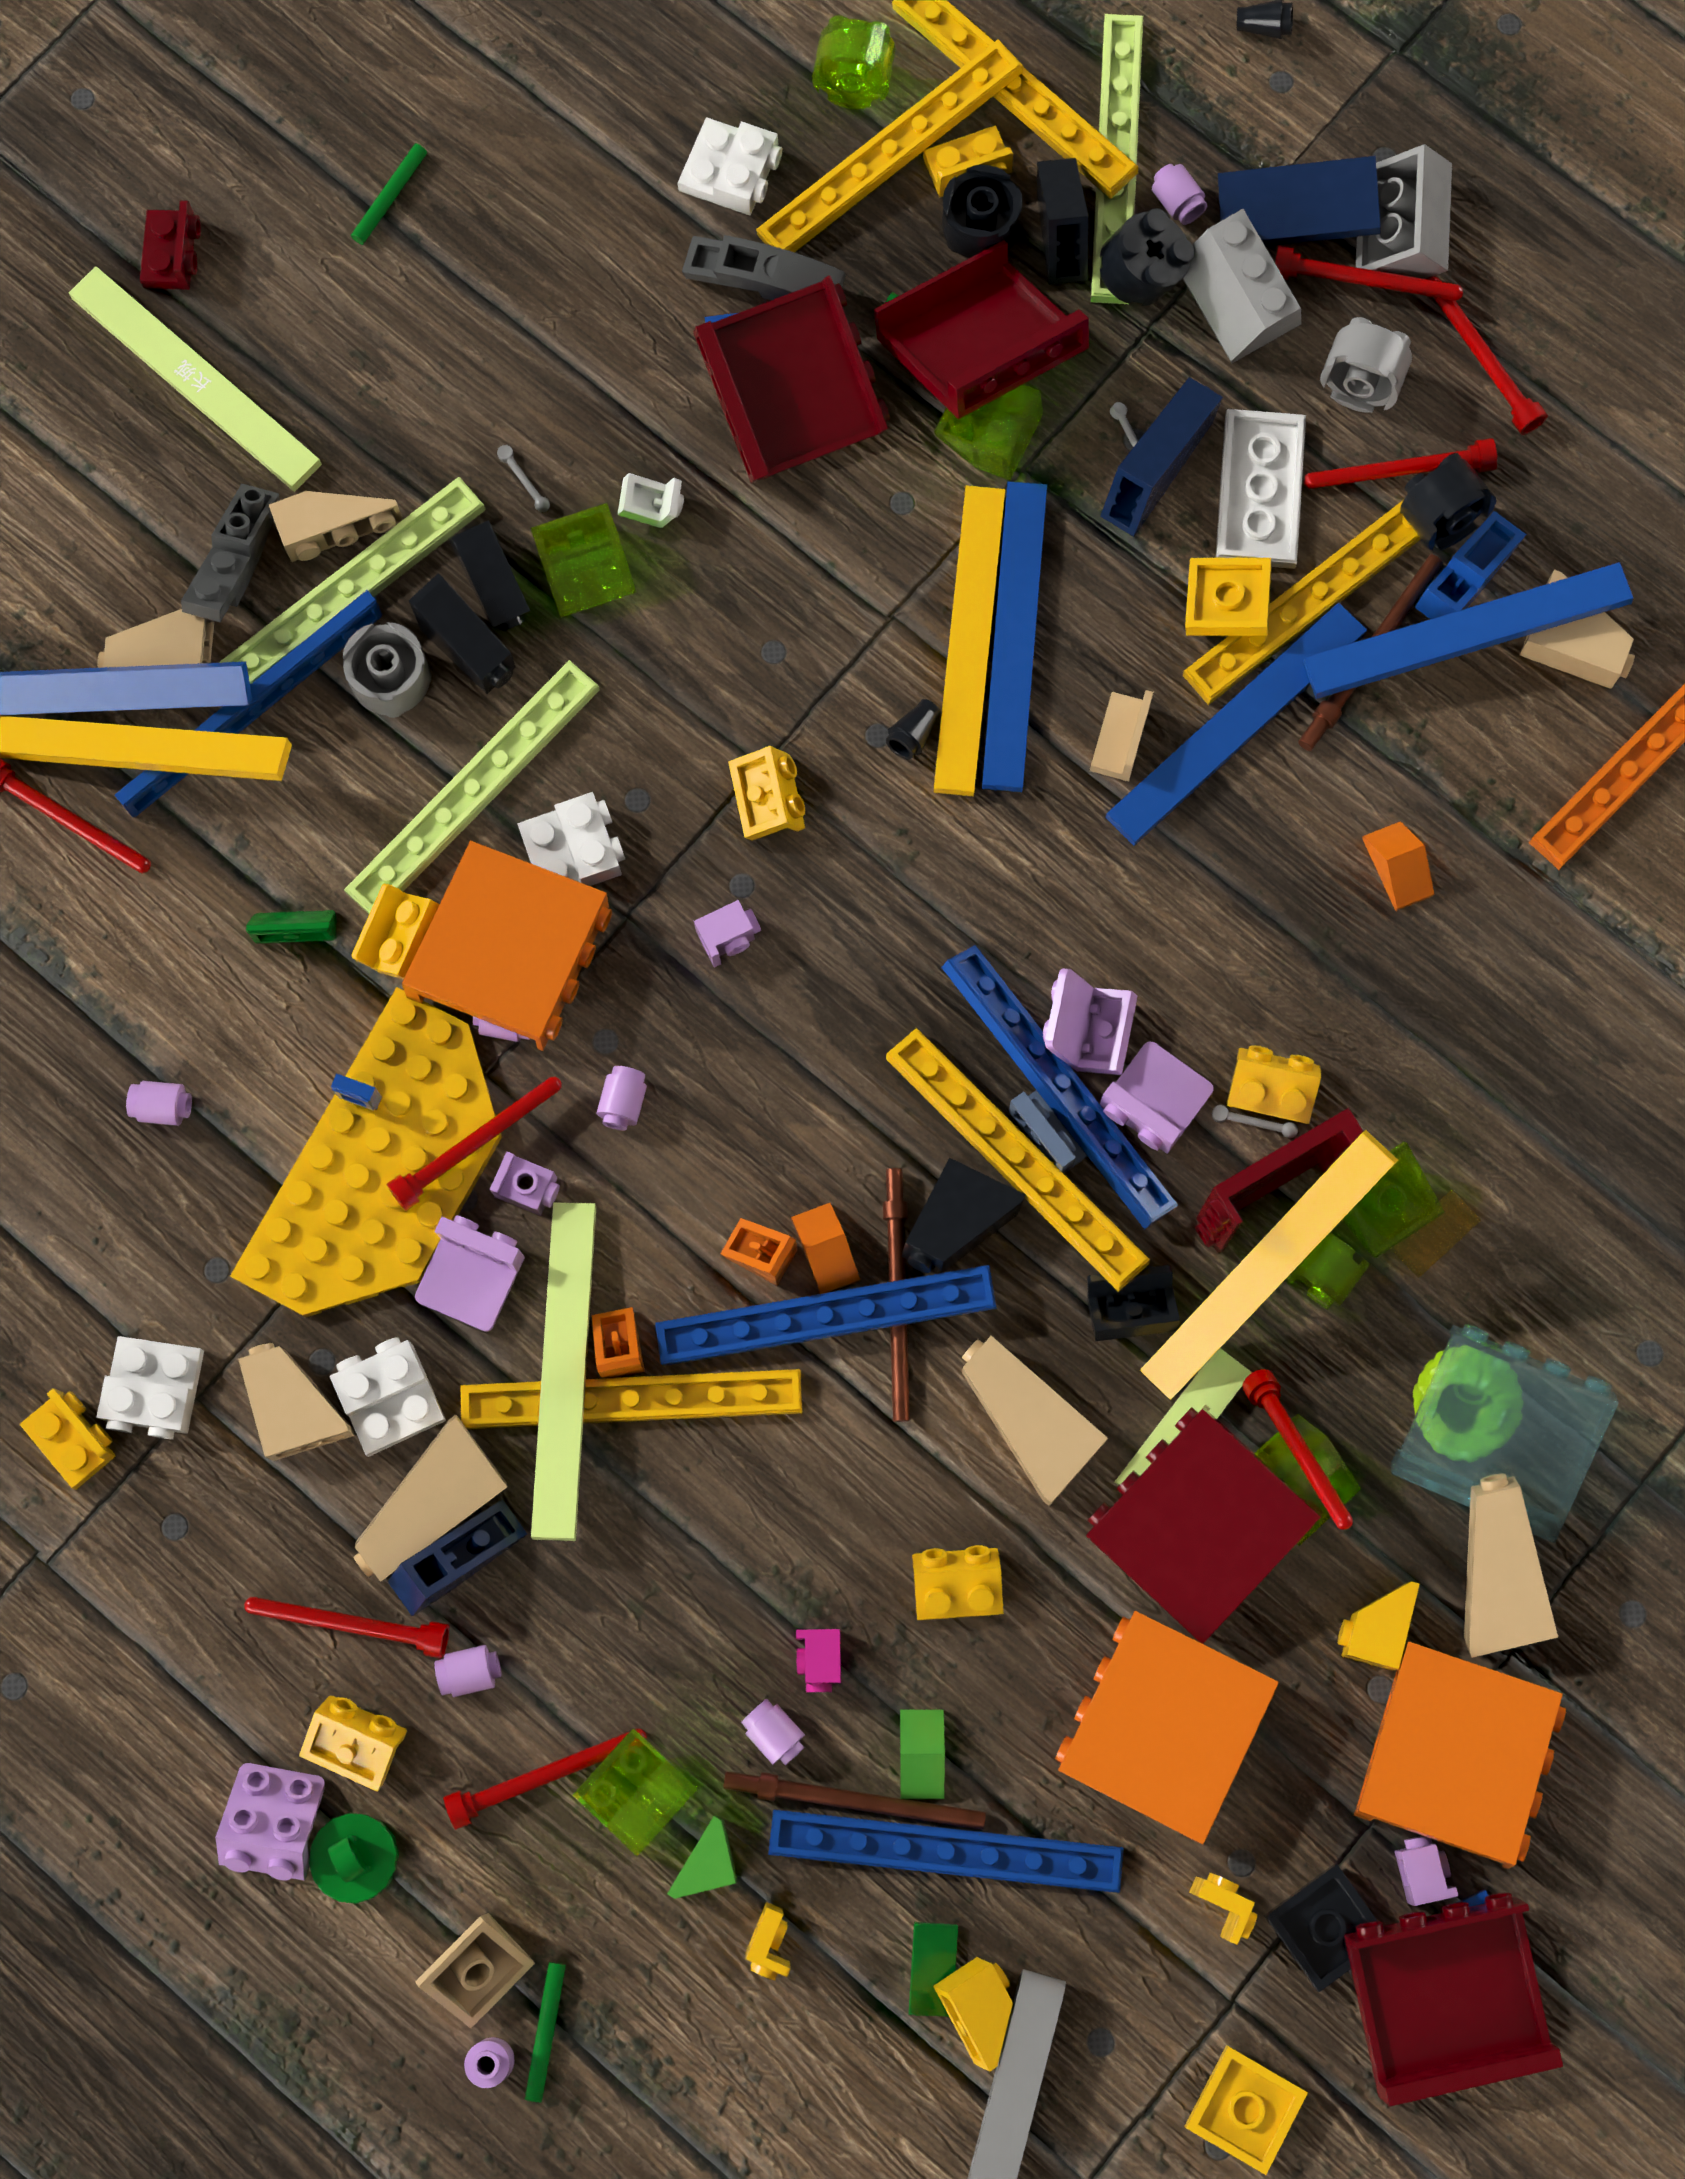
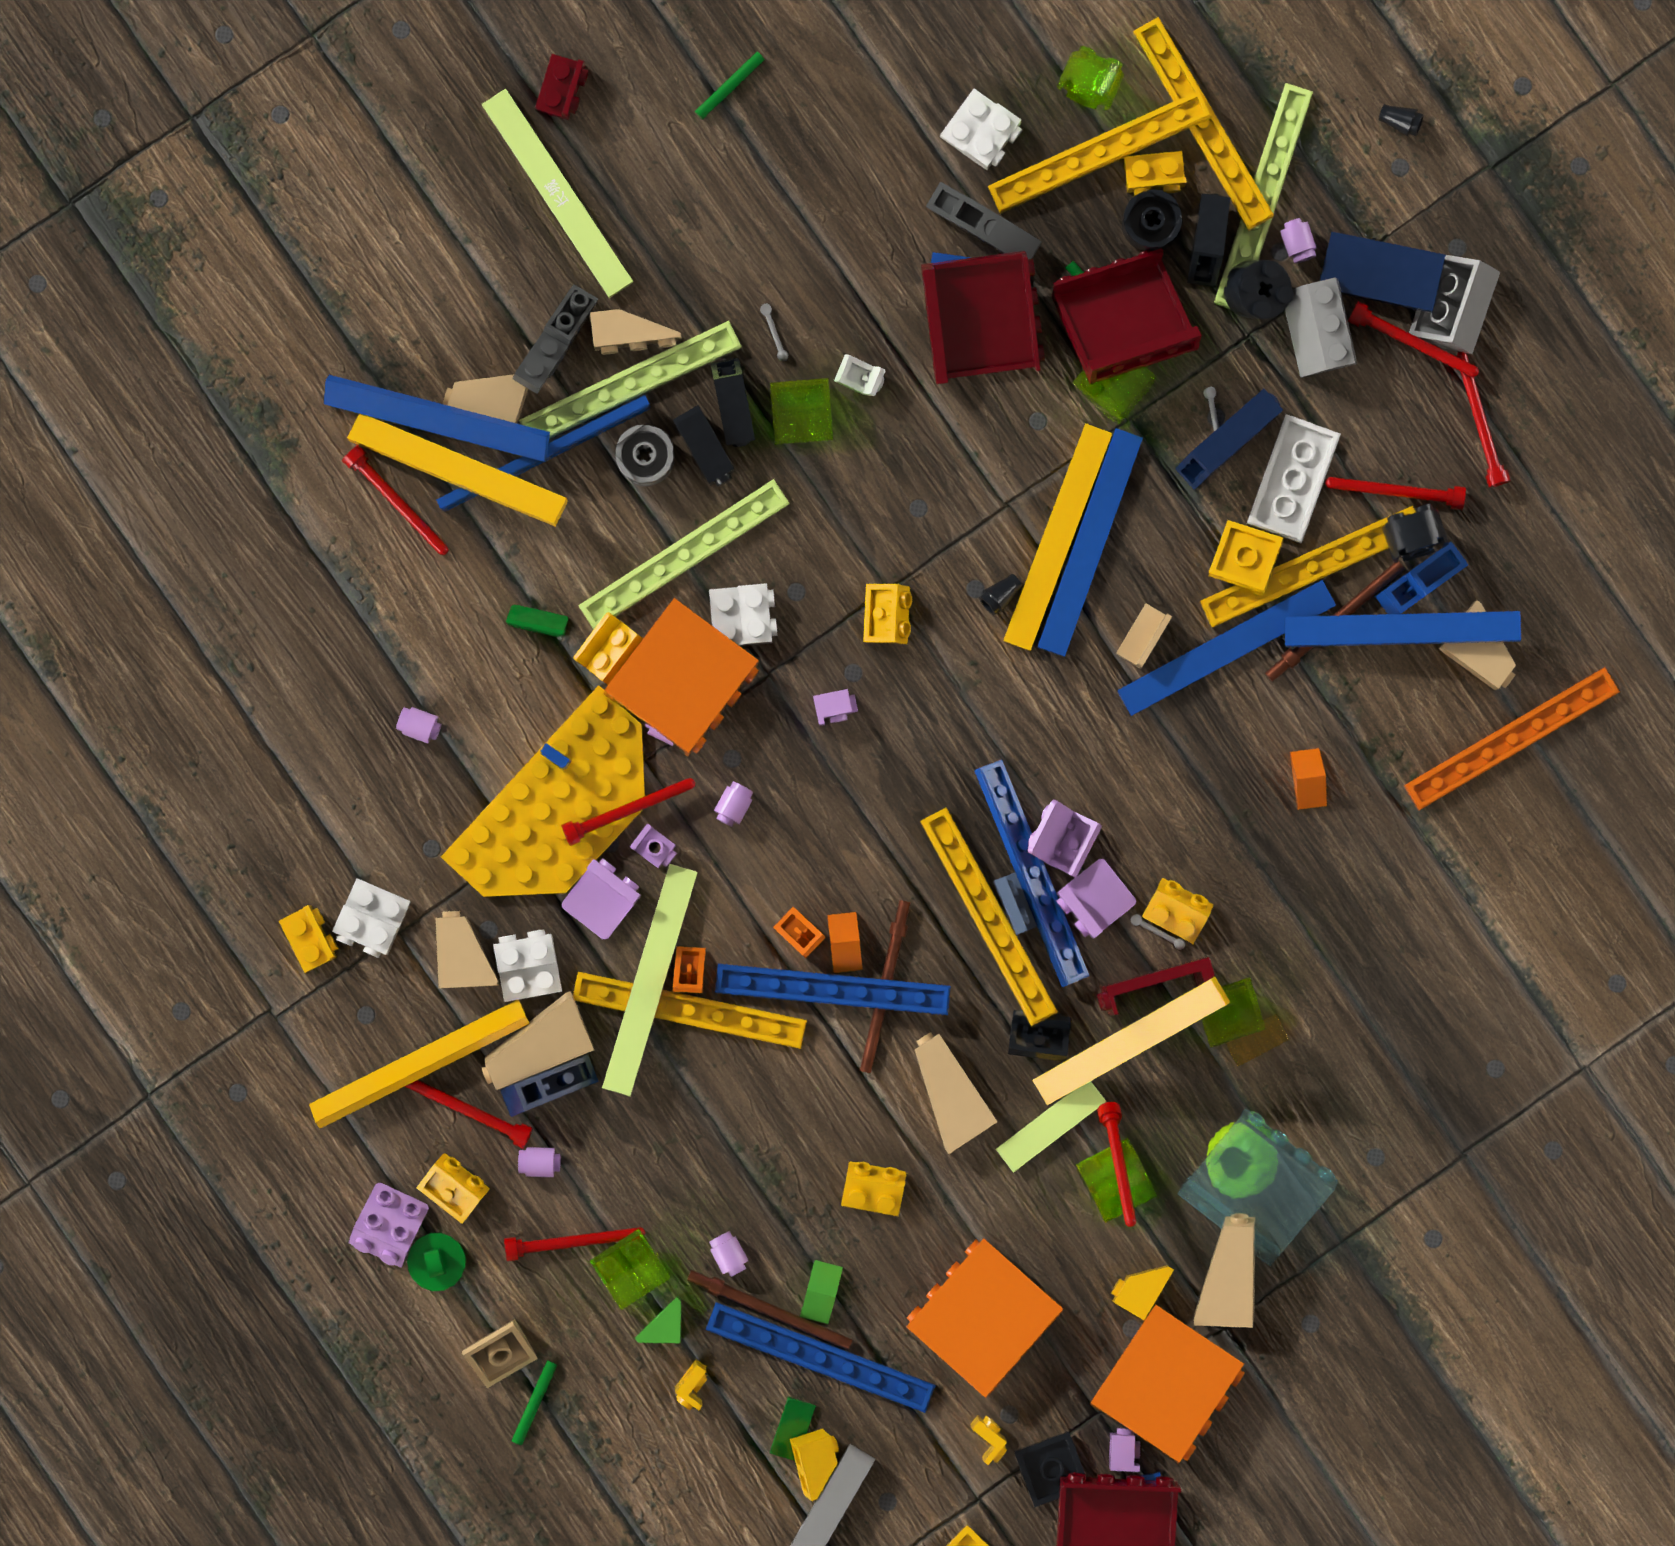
camera: 10 degrees right, 10 degrees up
(261, 1576) = (418, 1064): none -> yellow tile
(500, 2053) = (499, 1404): lavender brick -> none
(819, 1659) = (770, 1214): dark pink brick -> none
(959, 1217) = (939, 946): black slope -> none
(1201, 1523) = (1042, 1194): dark red panel -> none
(1329, 1272) = (1176, 1052): clear neon green brick -> none
(1367, 366) = (1392, 413): light grey brick -> none

